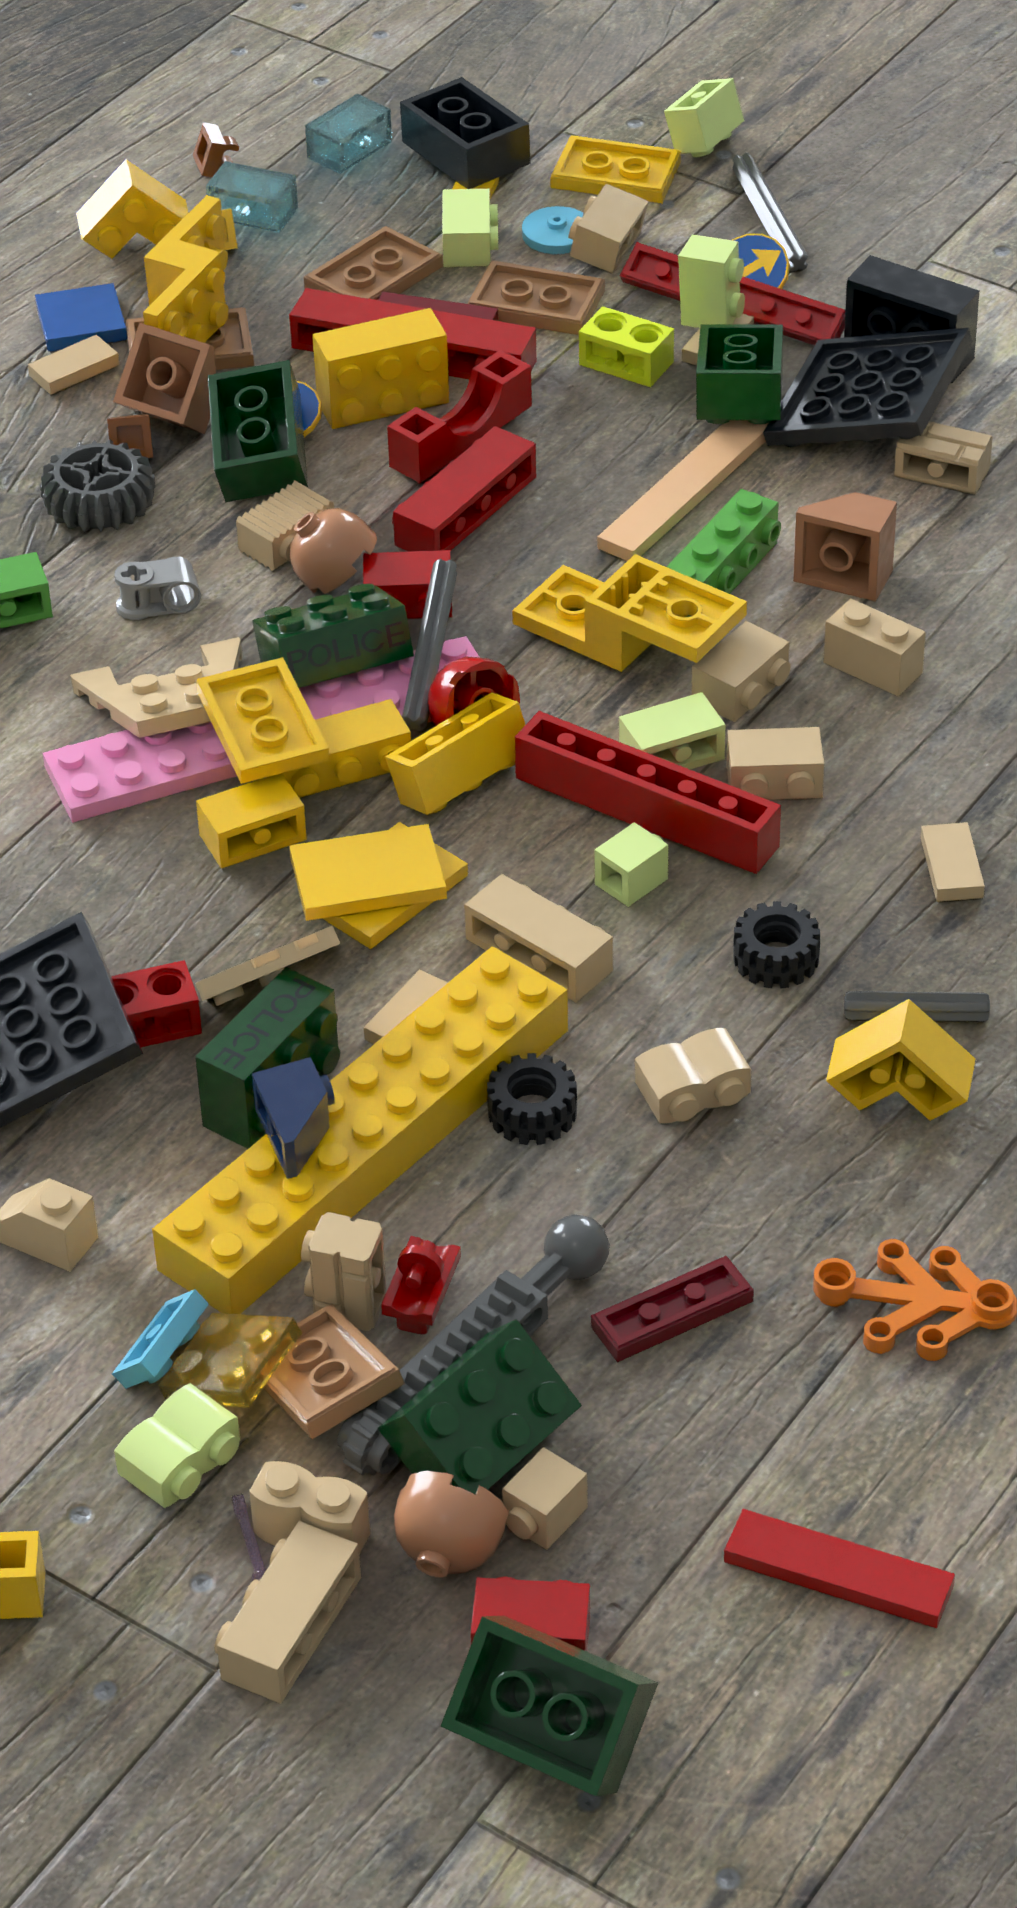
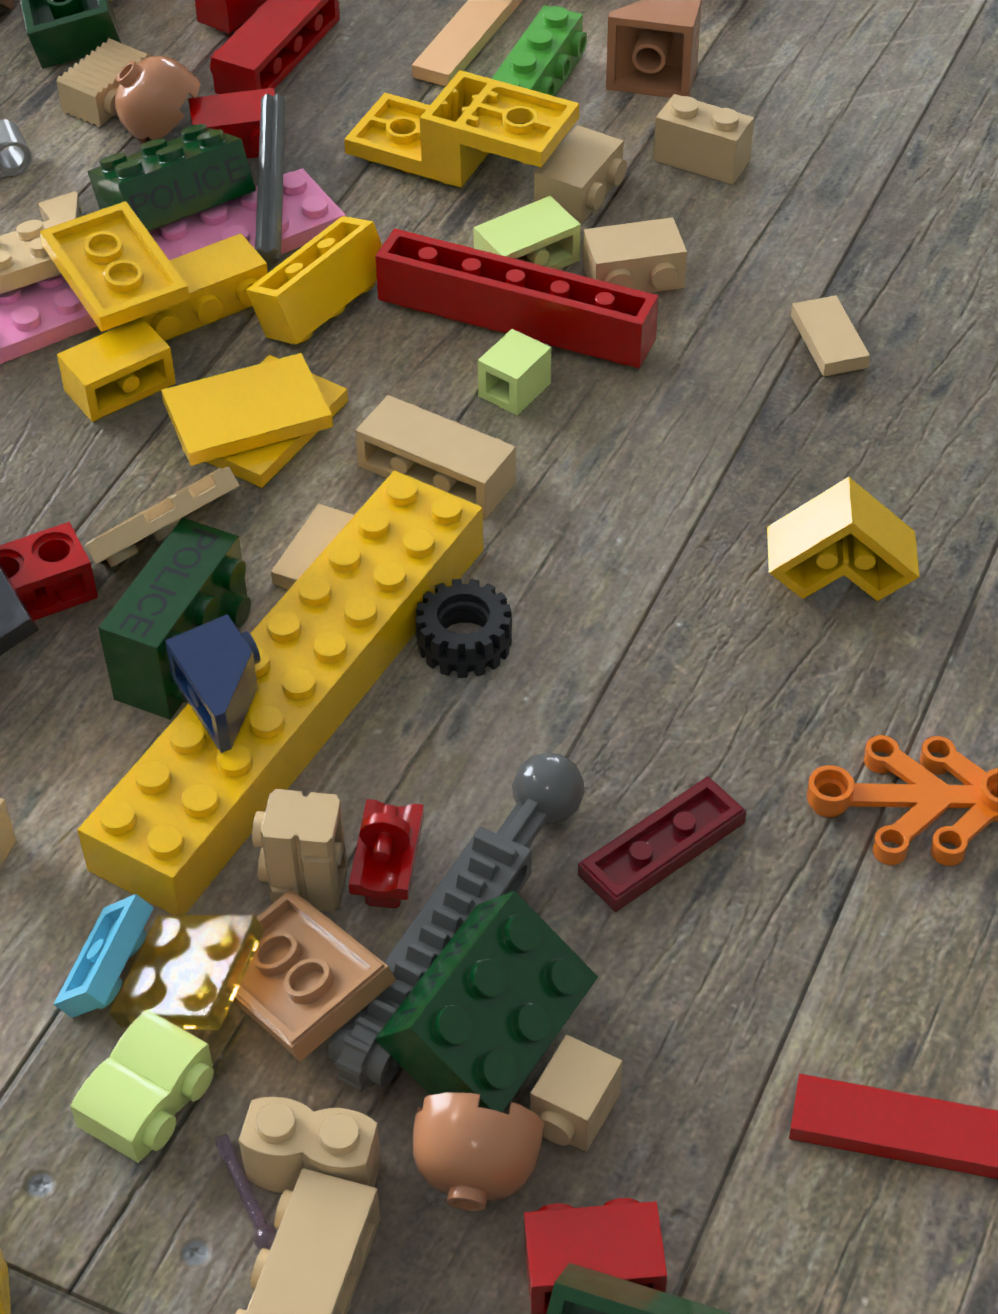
camera: 10 degrees left, 5 degrees up
(466, 682) = (314, 209): red cylinder -> none
(692, 1075) = (627, 583): tan brick -> none
(771, 963) = (679, 456): black tyre -> none
(937, 1005) = (807, 485): dark grey axle -> none

